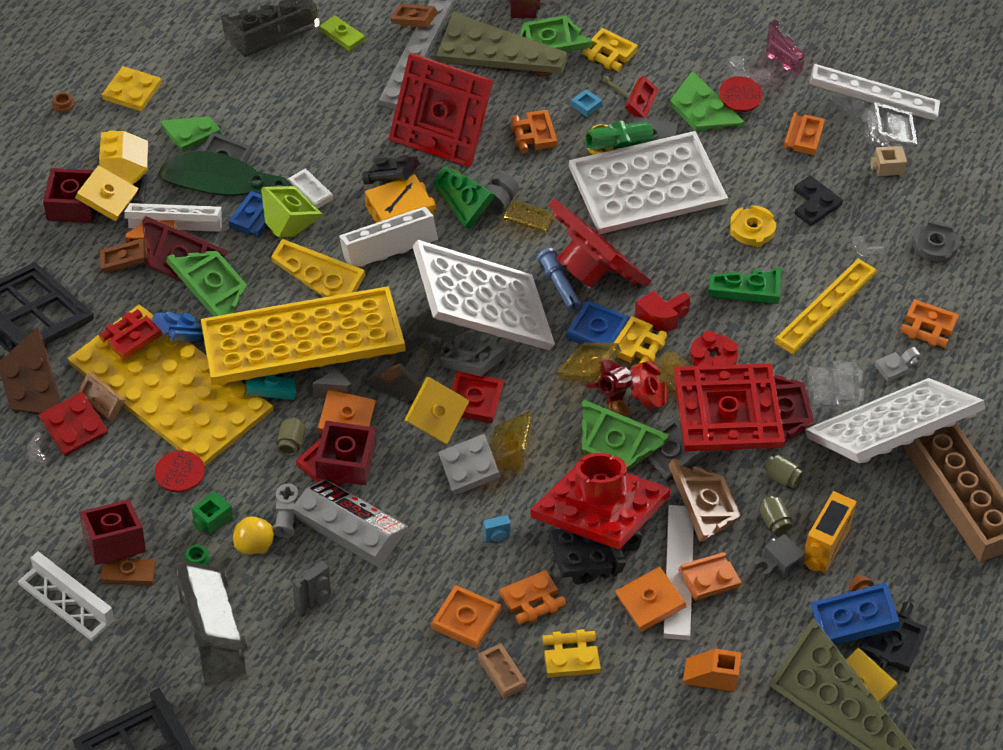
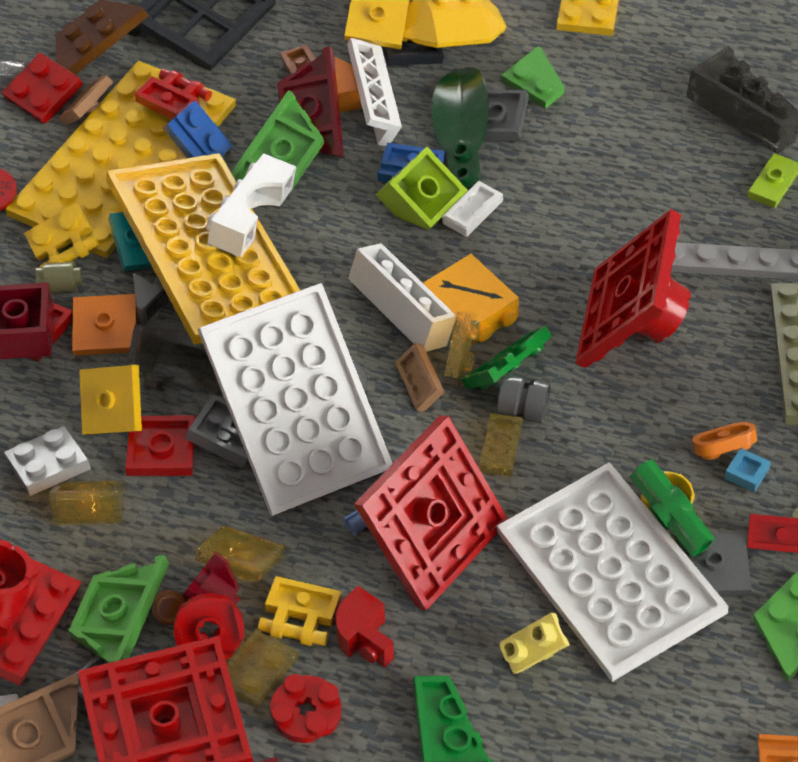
camera: 80 degrees right, 0 degrees up
(246, 429) = (60, 231): none -> yellow plate
(296, 309) = (235, 224): none -> white arch
(316, 270) = (335, 246): yellow wing -> none
(389, 169) = (531, 274): black plate -> none
(450, 209) = (460, 357): none -> clear yellow plate
(465, 243) = (419, 377): none -> medium nougat plate
(540, 129) = (669, 427): orange plate -> none
(560, 107) = (724, 439): none -> orange plate
(596, 324) = (317, 556): blue plate -> none
(698, 226) = (533, 643): none -> light yellow hips
(752, 235) = (571, 738): yellow plate -> none

